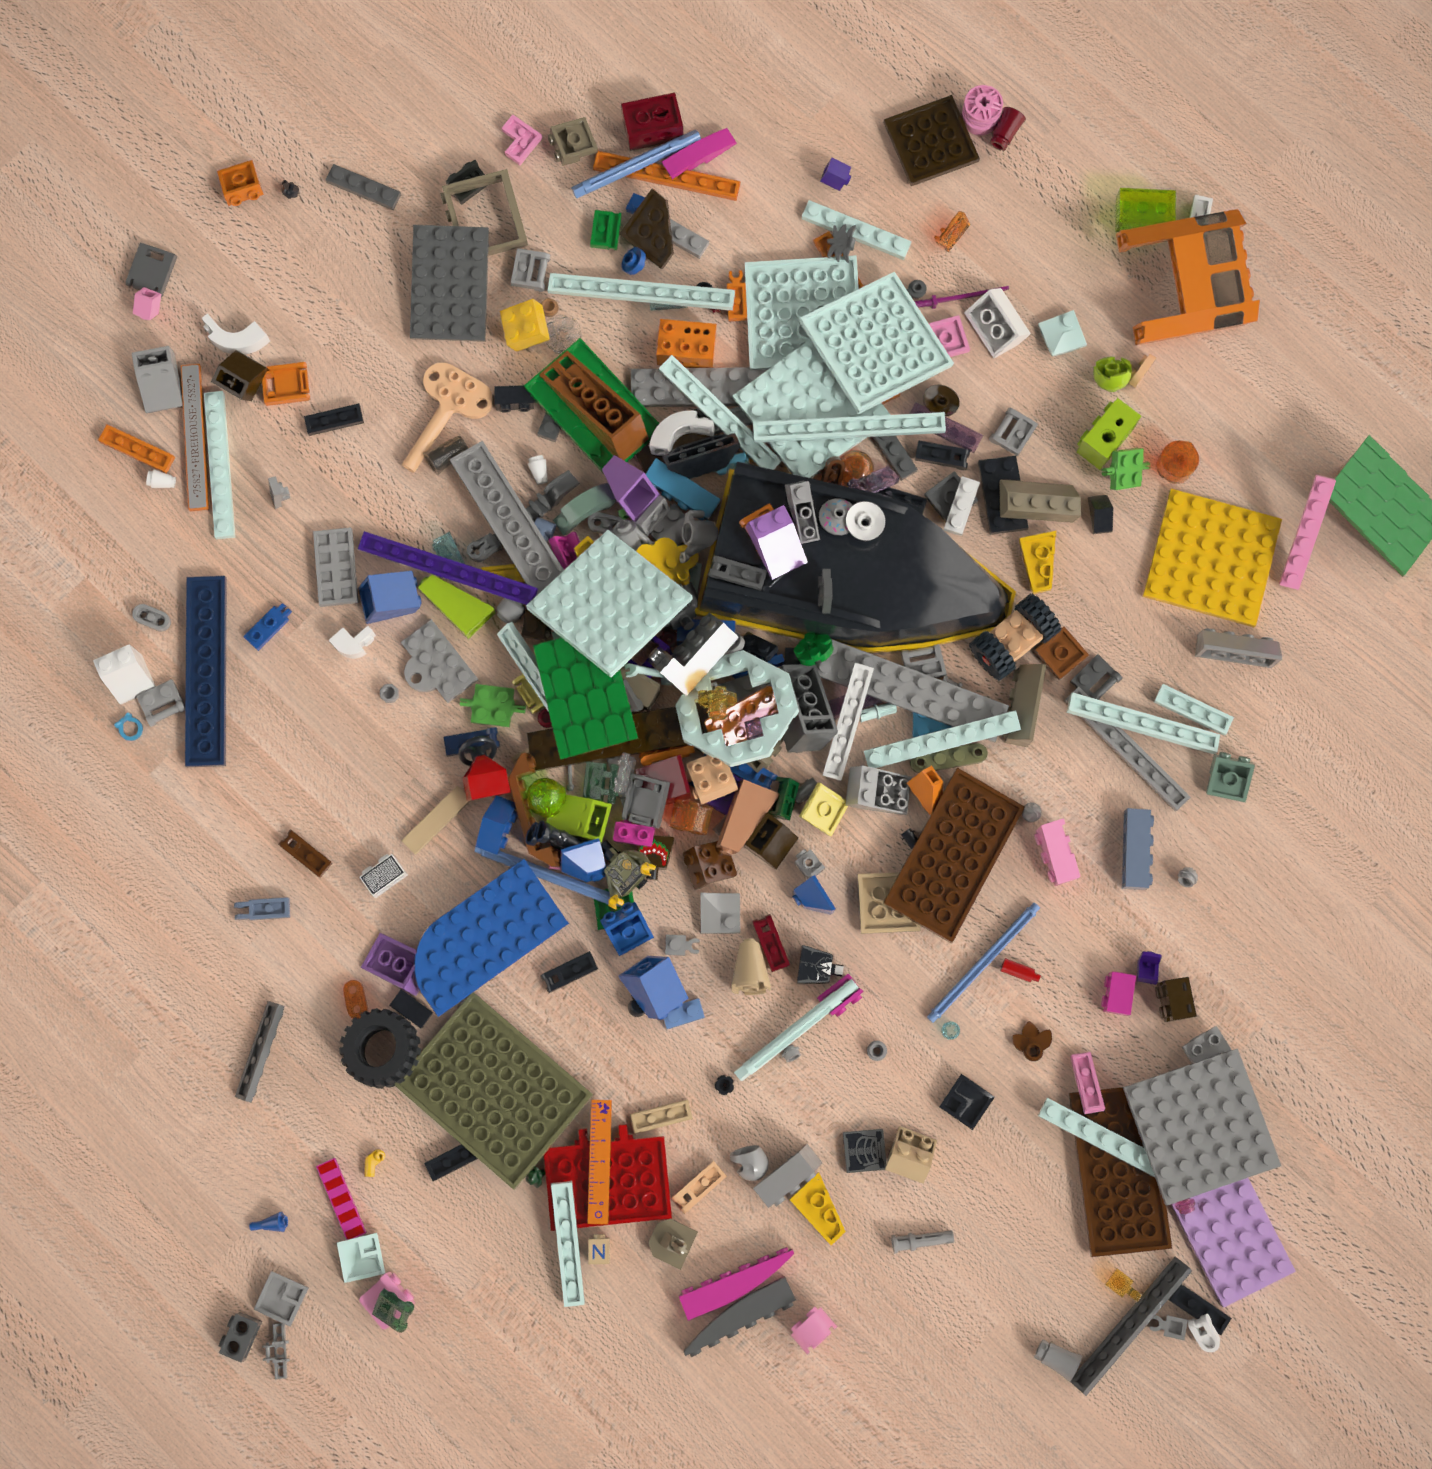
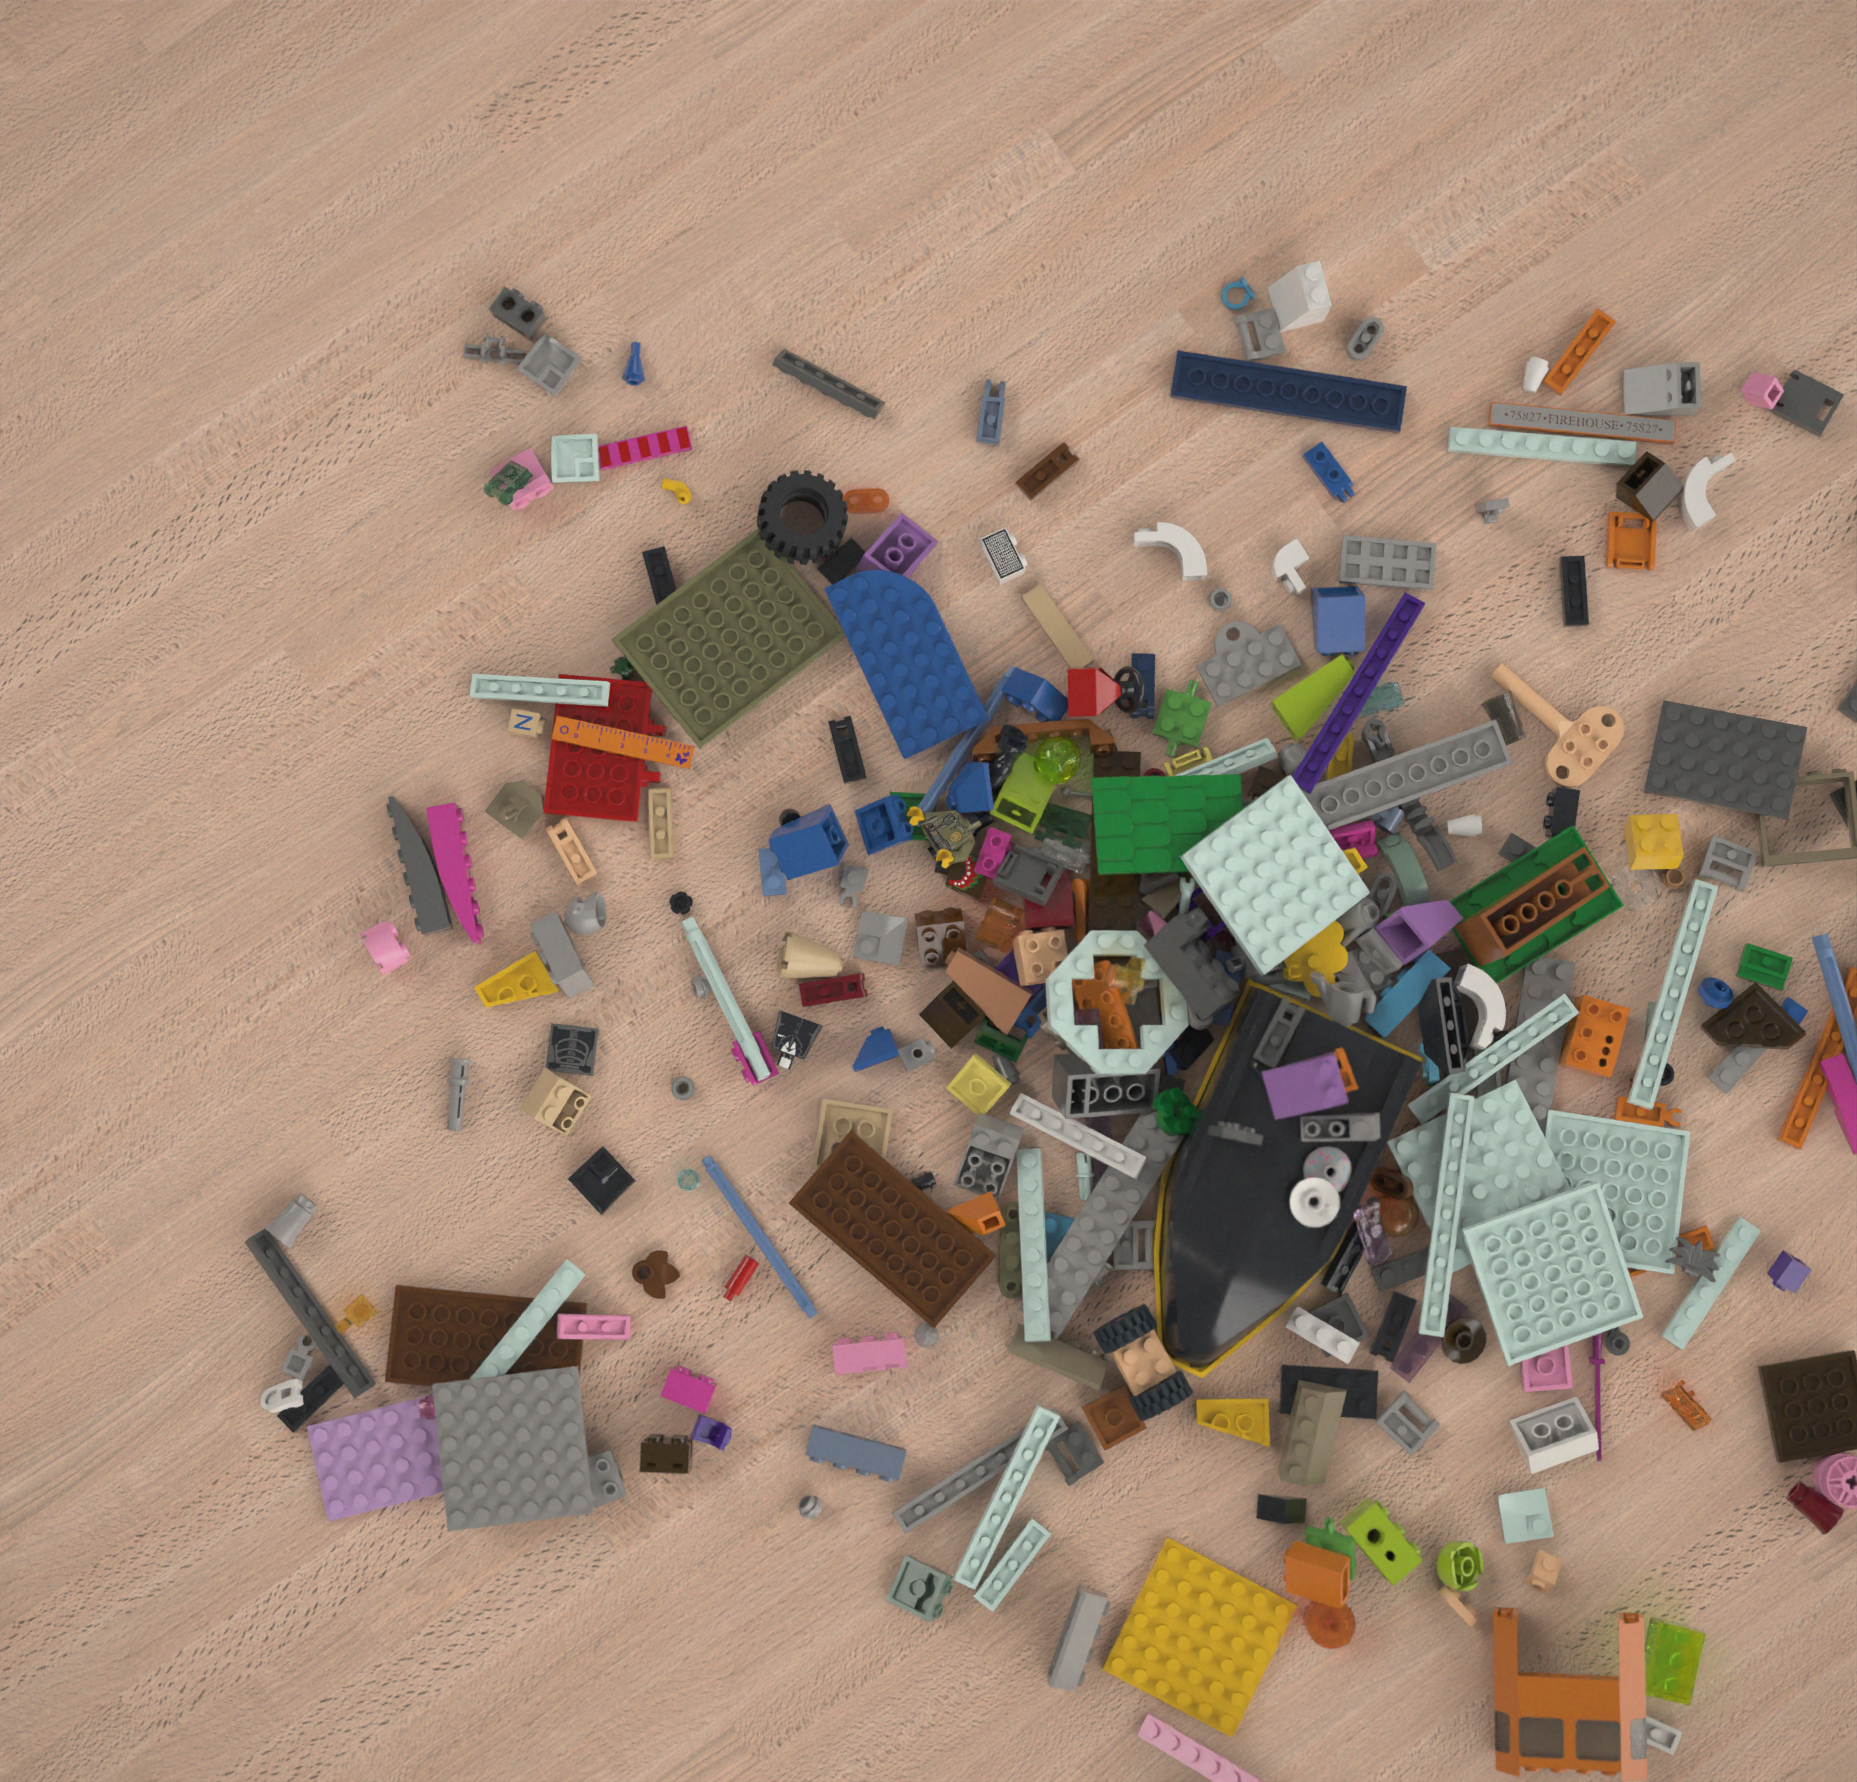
camera: 100 degrees right, 5 degrees up
(349, 729) = (1181, 543): none -> white arch
(665, 696) = (1152, 923): none -> bright pink slope
(1101, 312) = (1543, 1572): none -> light nougat bracket
(1145, 475) = (1317, 1574): none -> orange brick

